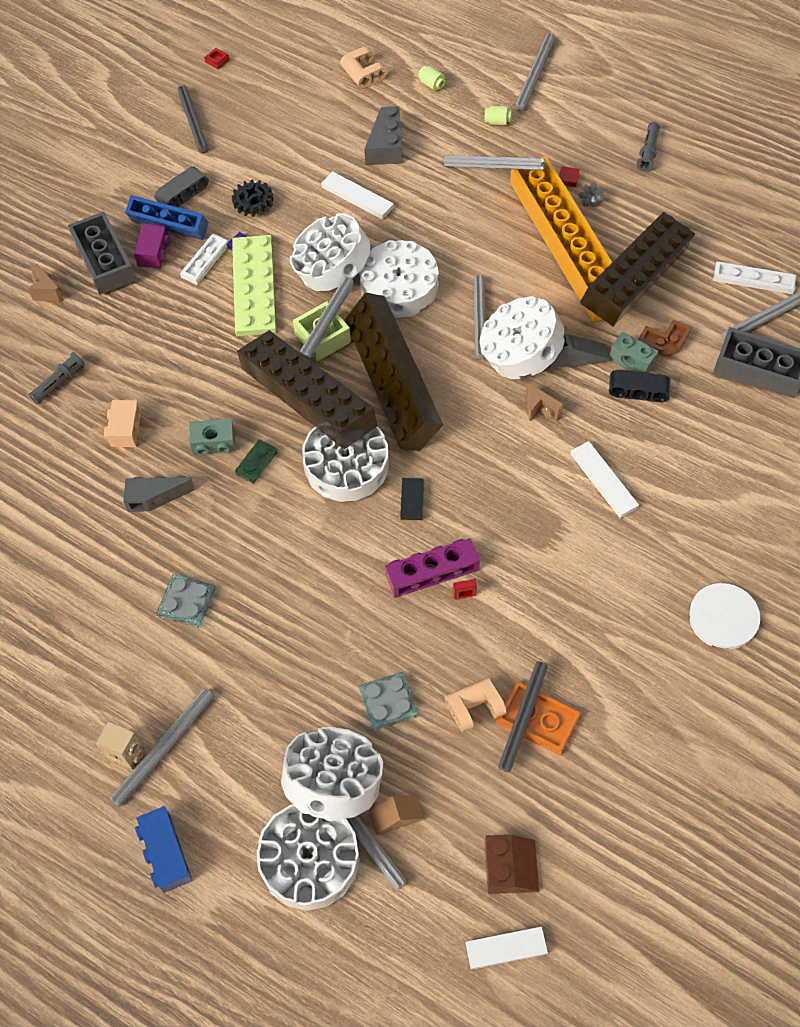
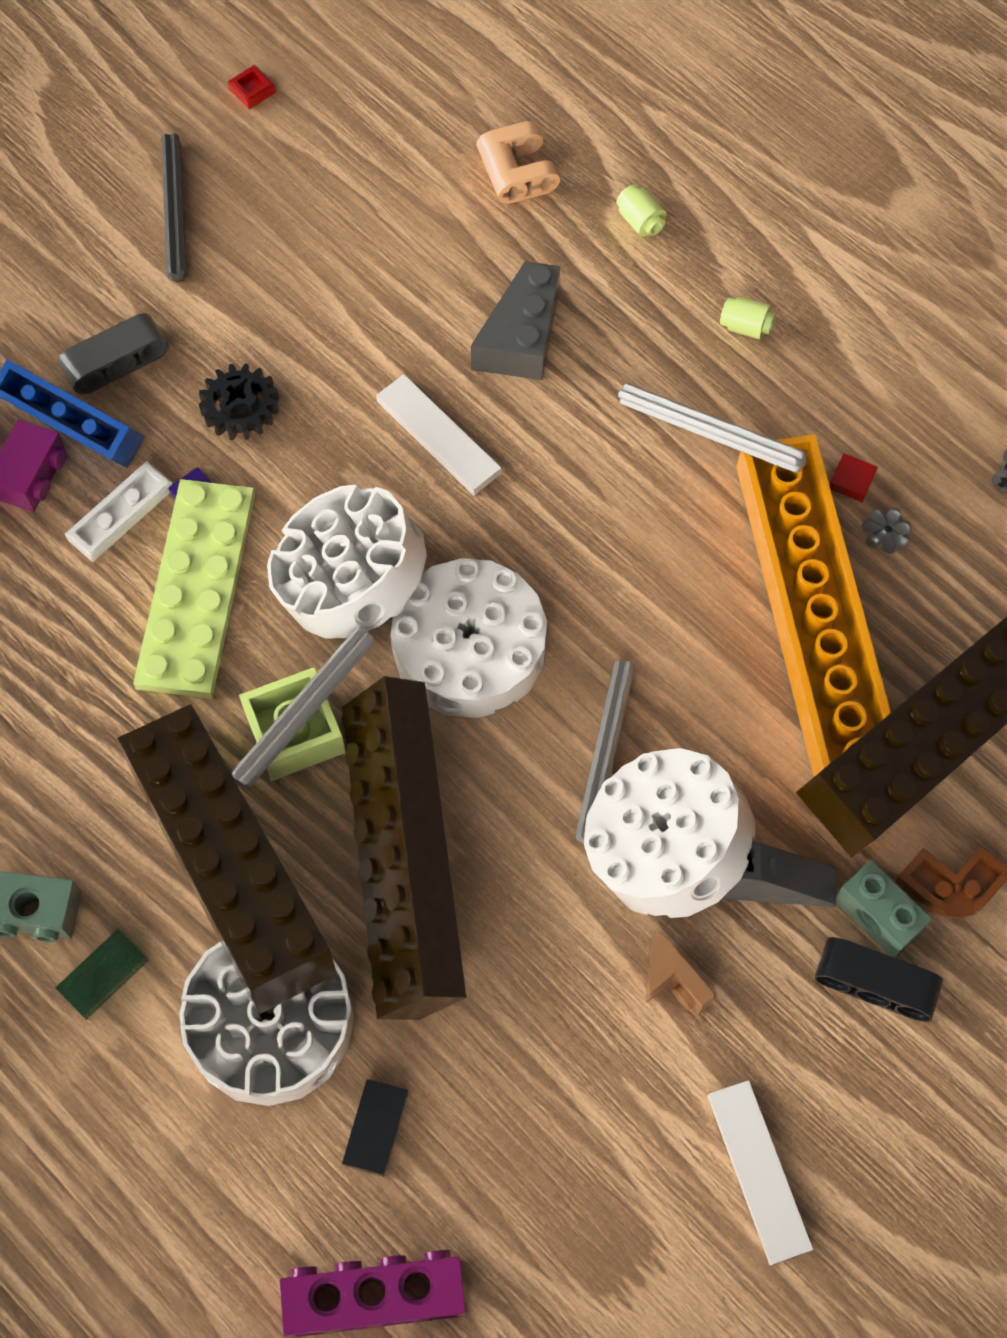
camera: 10 degrees right, 5 degrees up
(535, 72) = (843, 235): light grey axle -> none

